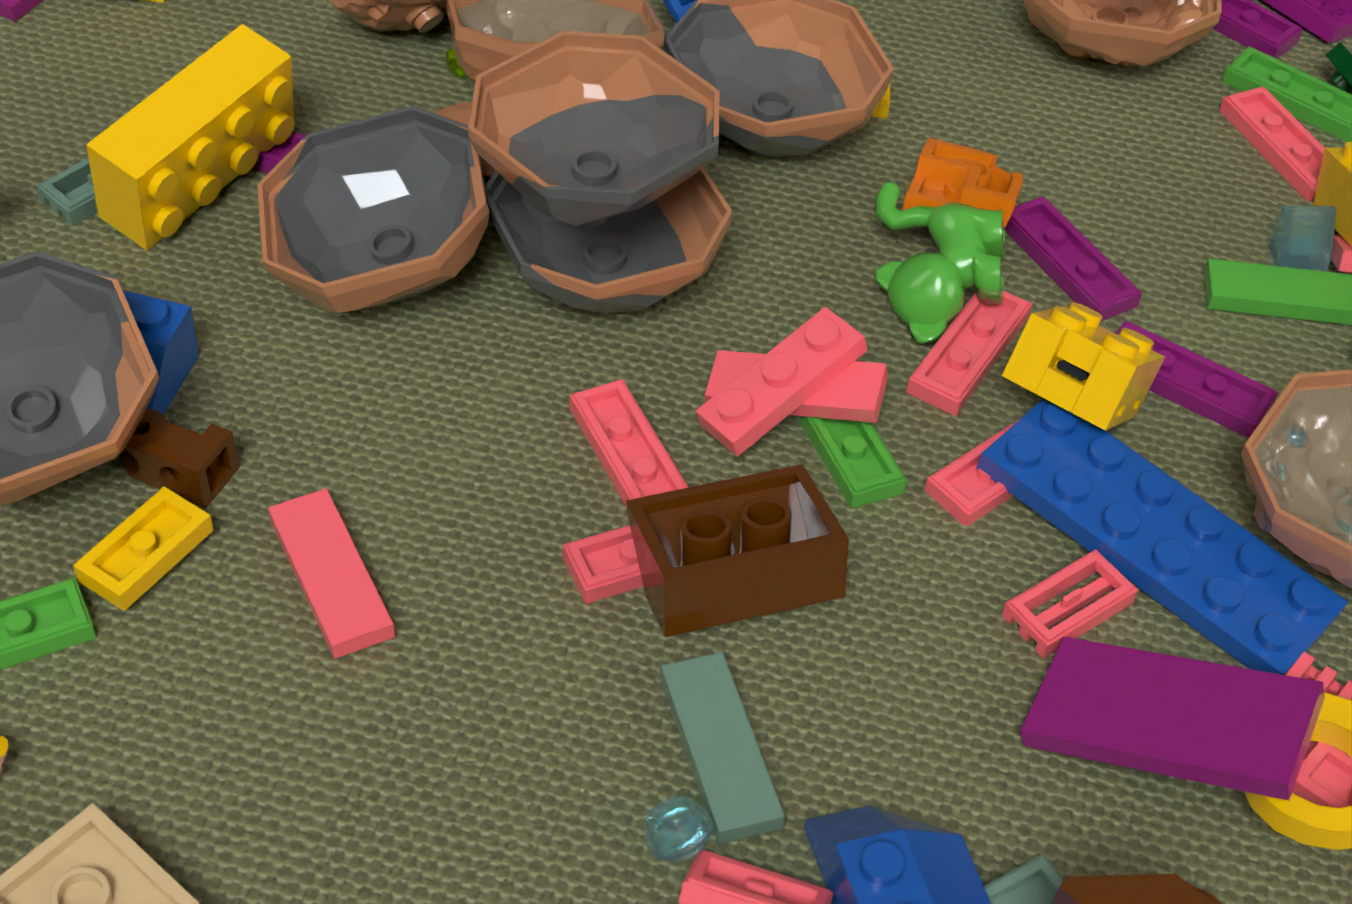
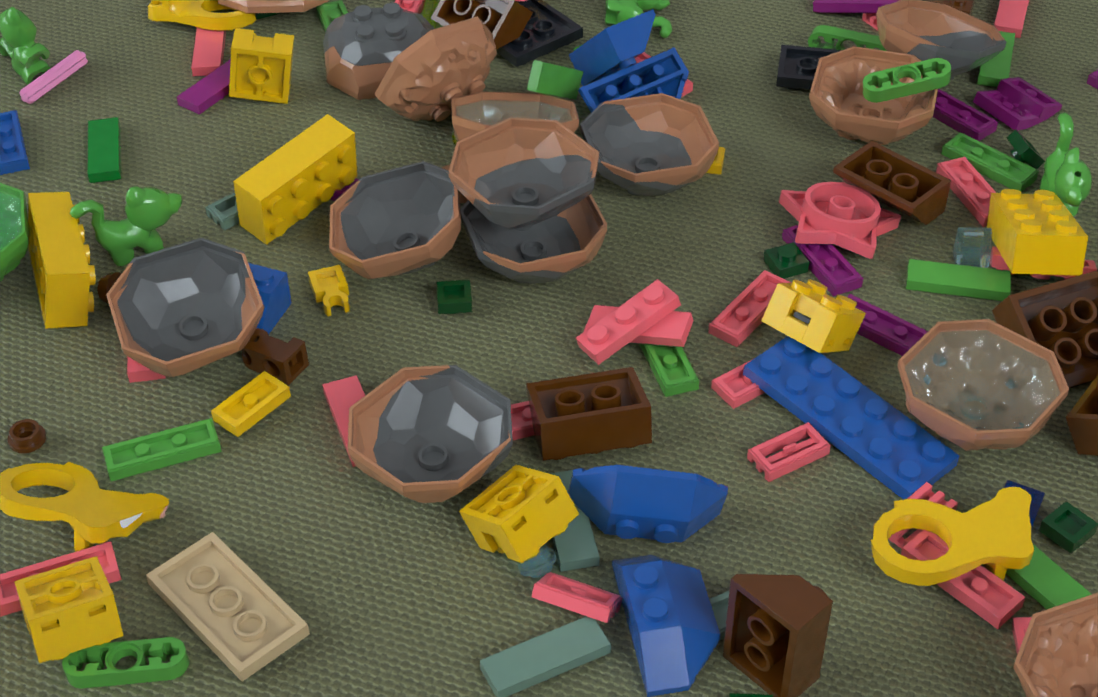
camera: 10 degrees right, 5 degrees down
(267, 327) = (330, 288): none -> yellow plate
(472, 601) = (430, 432): none -> dark grey rock
(480, 340) = (454, 297): none -> dark green plate
(624, 441) = (532, 352): coral tile -> none
(645, 747) = (519, 513): none -> yellow piece
(852, 715) = (646, 501): none -> blue wedge
(932, 286) = (729, 271): bright green animal -> none
(962, 176) = (755, 215): orange brick -> none
(1023, 265) = (786, 260): none -> dark green plate
(1091, 189) = (839, 216): none -> coral plate
(1172, 130) = (896, 181): none -> reddish brown slope
(1175, 716) = (835, 510): magenta tile -> none

